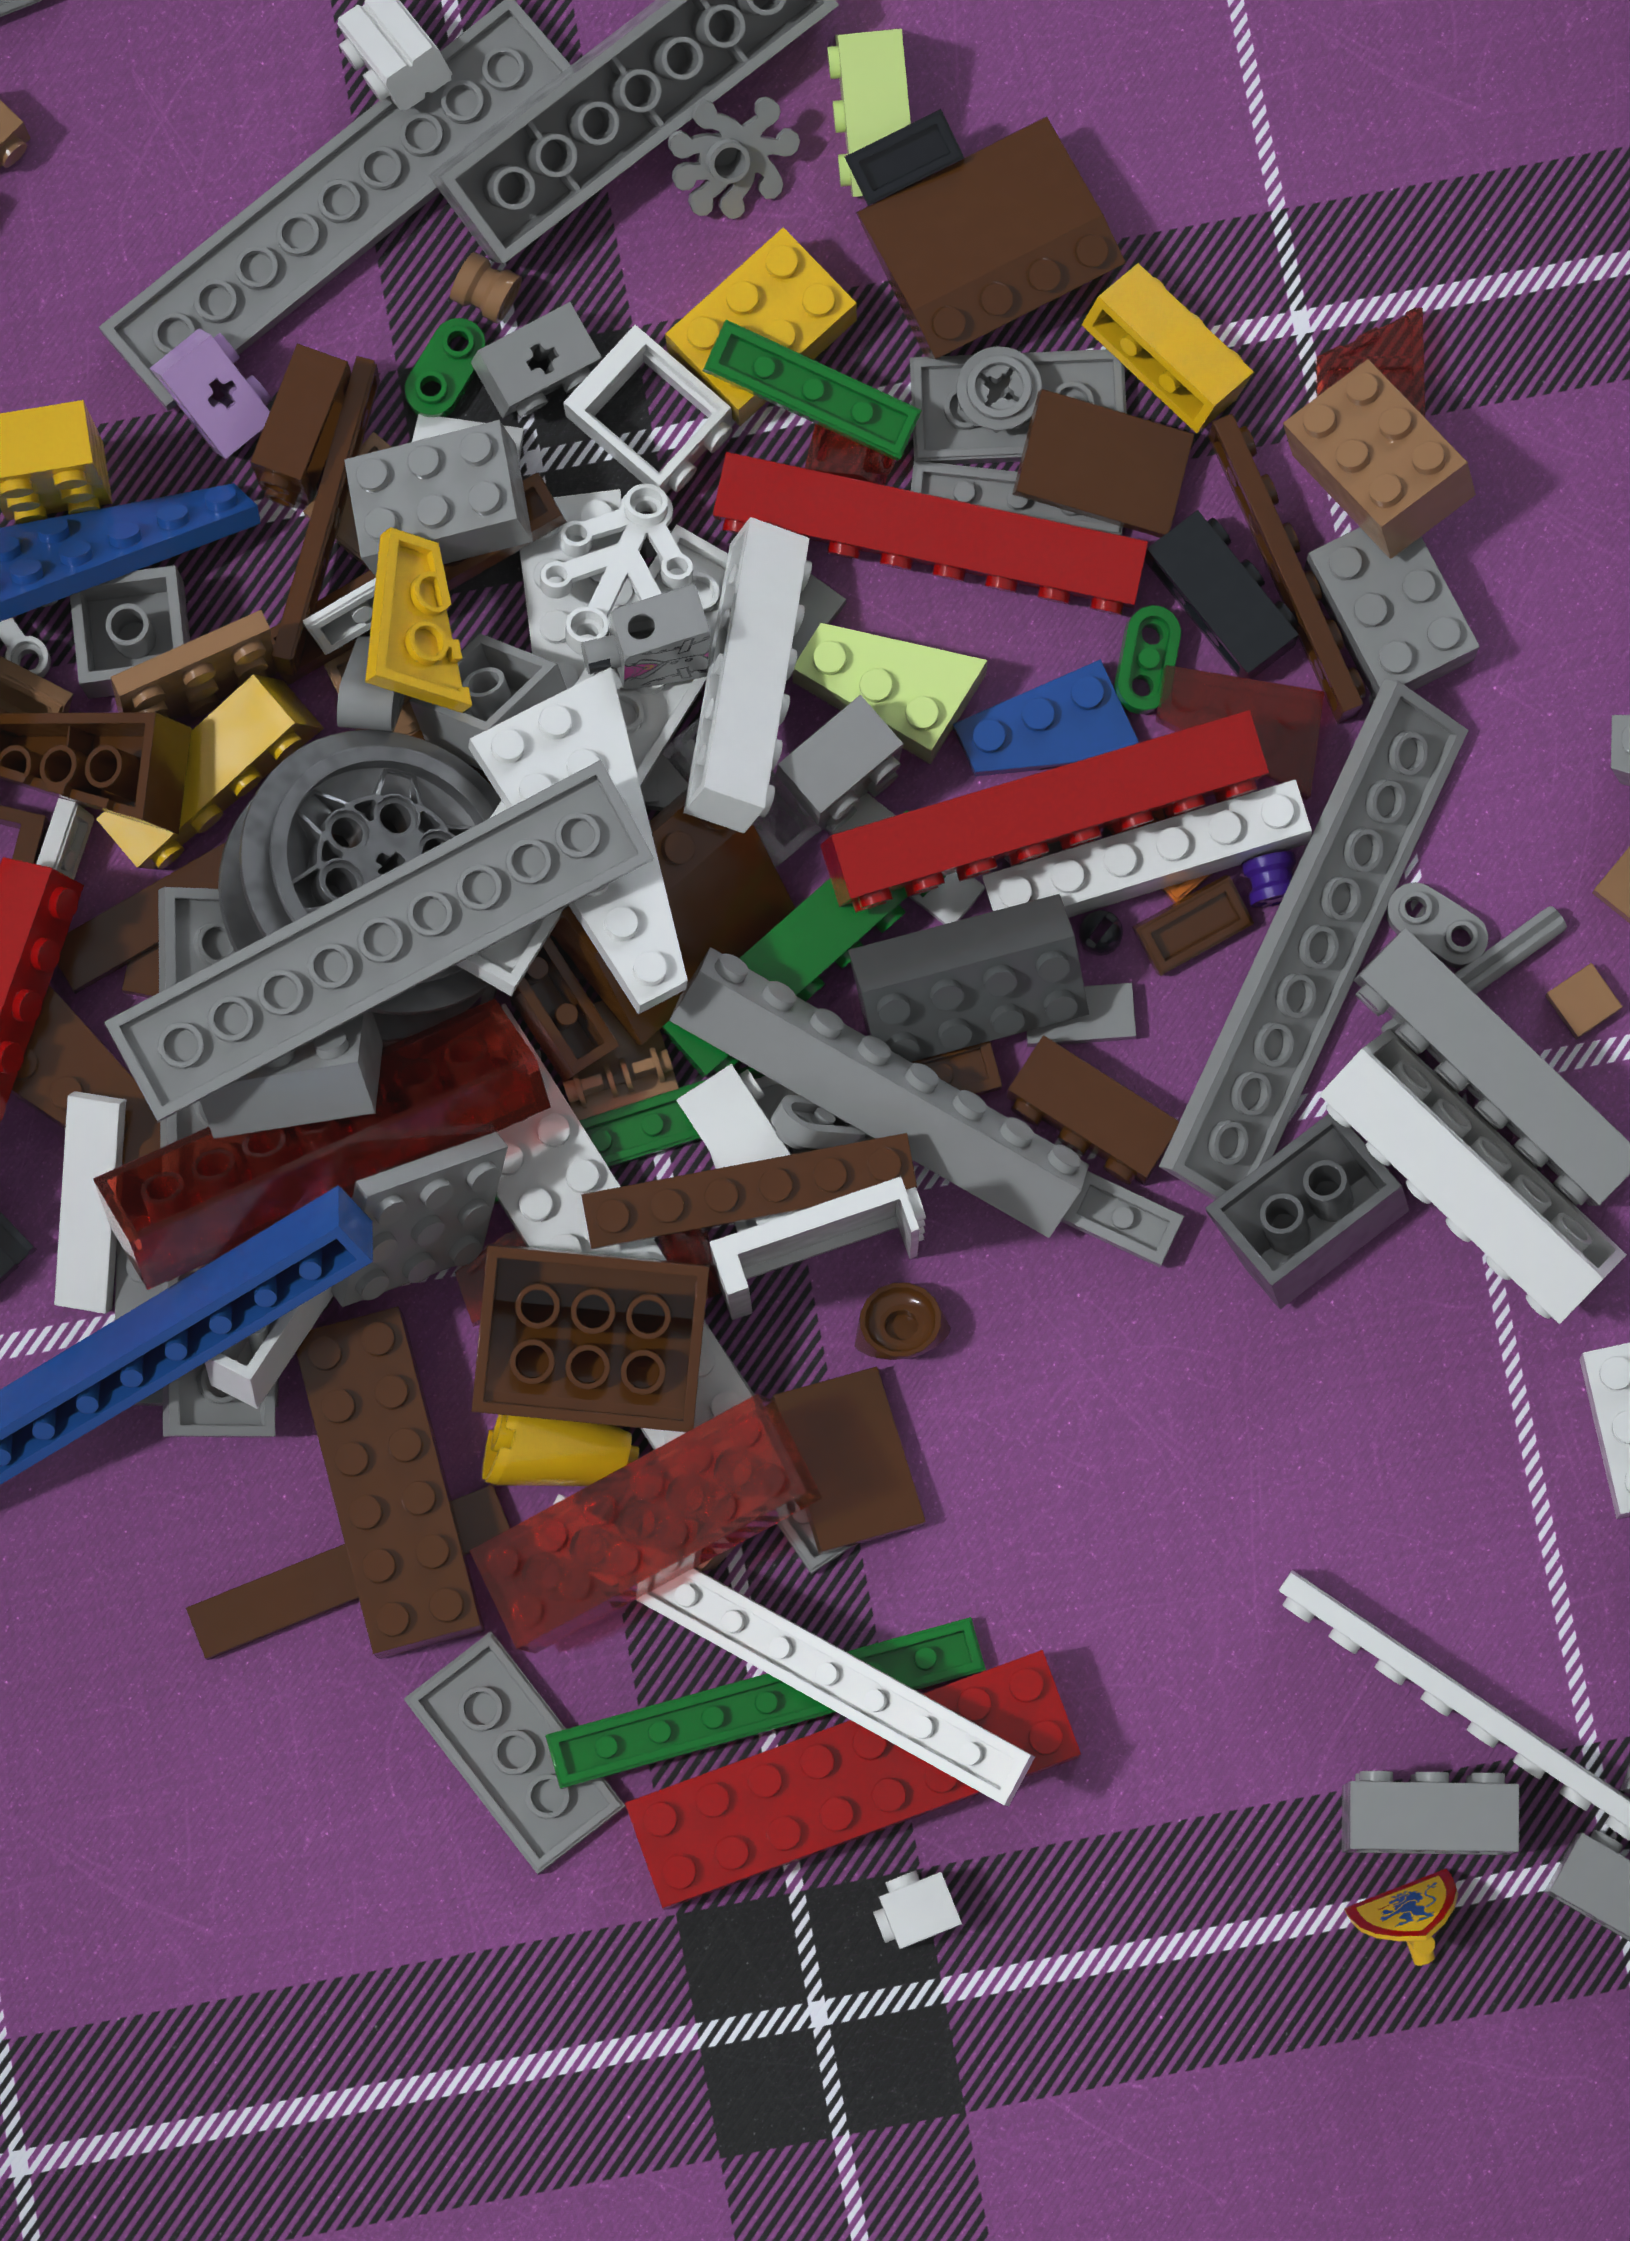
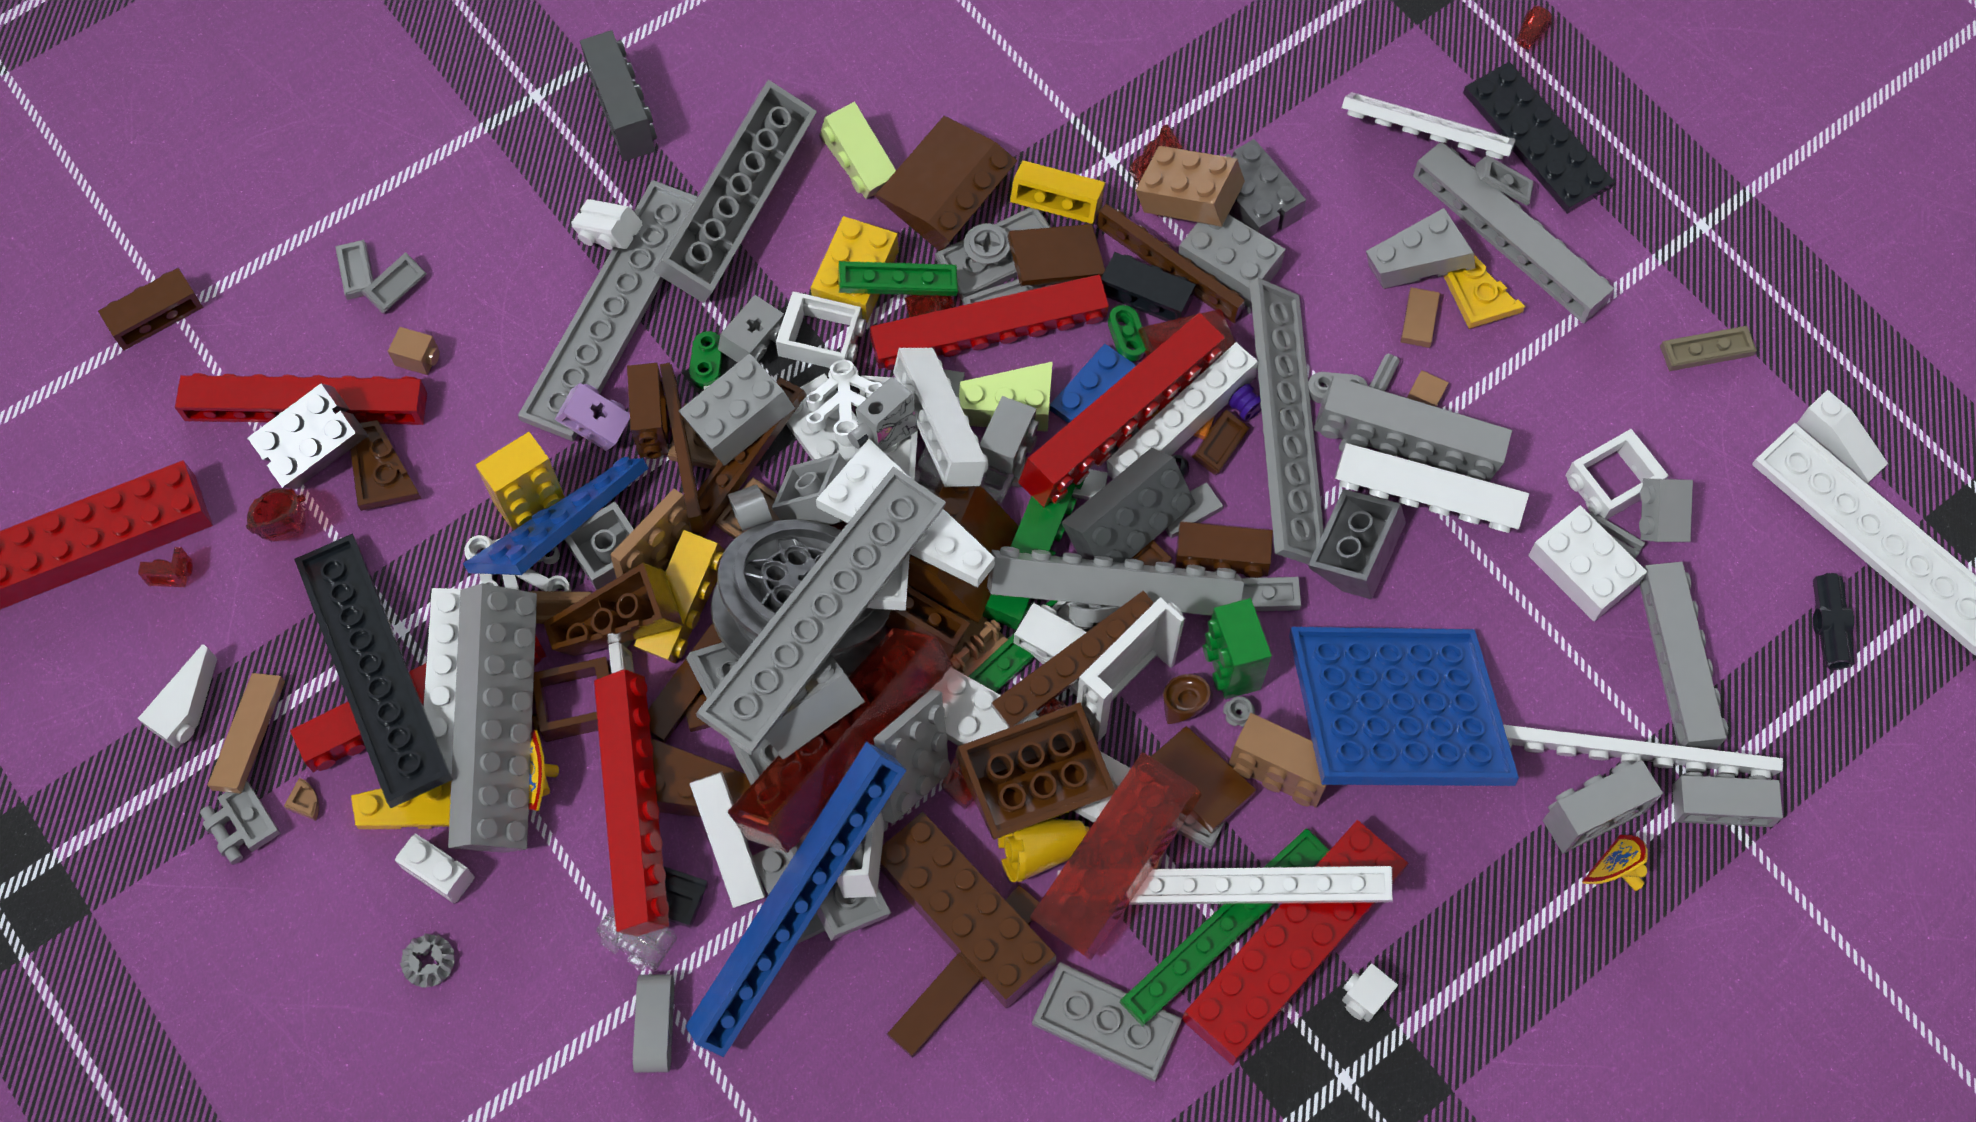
camera: 30 degrees left, 15 degrees down
(343, 618) = (722, 478): white slope -> none
(410, 624) = (755, 465): yellow wing -> none
(485, 287) = (707, 312): medium nougat wheel -> none
(730, 157) = (799, 201): light grey animal -> none
(904, 157) = (885, 159): black tile -> none
(975, 1370) = (1235, 704): none -> light grey plate
(983, 1502) = (1278, 760): none -> medium nougat brick
(1009, 1292) = (1237, 649): none -> green brick
(1206, 1512) = (1401, 707): none -> blue plate
(1511, 517) = (1265, 193): none -> flat silver piece

